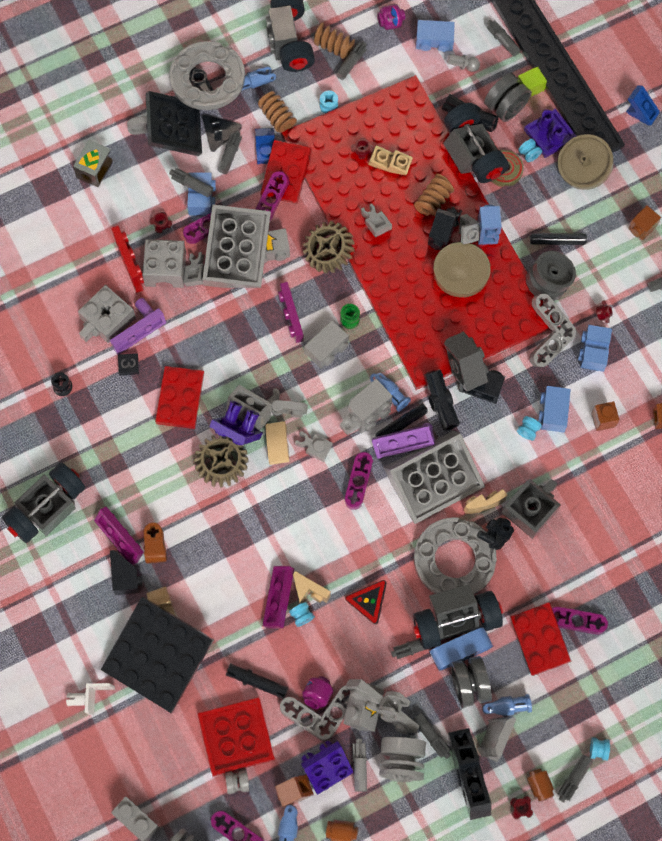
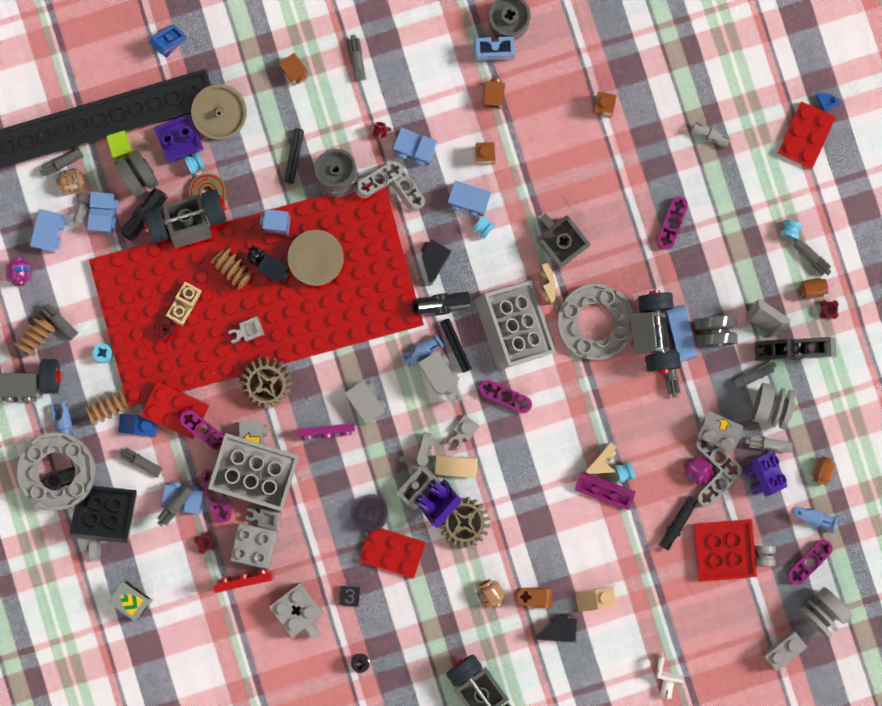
camera: 80 degrees left, 15 degrees up
(118, 536) = (521, 629): magenta plate -> none
(151, 322) = (310, 566): medium lavender piece -> none
(151, 498) = (490, 593): none -> medium nougat head
(157, 654) = (641, 609): black plate -> none
(215, 367) = (369, 513): none -> clear purple tile
(218, 130) = (112, 469): black piece -> none
(294, 790) = (783, 506): brick -> none
(347, 319) = (340, 374): green wheel -> none
(369, 600) = (623, 408): piece -> none
(388, 706) = (730, 409): light grey plate -> none
(404, 441) = (478, 345): medium lavender piece -> none
(463, 78) = (102, 212): none -> medium blue brick
(466, 361) = (414, 273): dark grey hinge -> none
(468, 229) = (276, 241): light grey bracket -> none
(487, 47) = (70, 181): none -> medium nougat head
(498, 533) = (580, 276): black piece -> none
(506, 705) = (739, 302): medium blue piece -> none
(541, 639) = (684, 259): red plate -> none

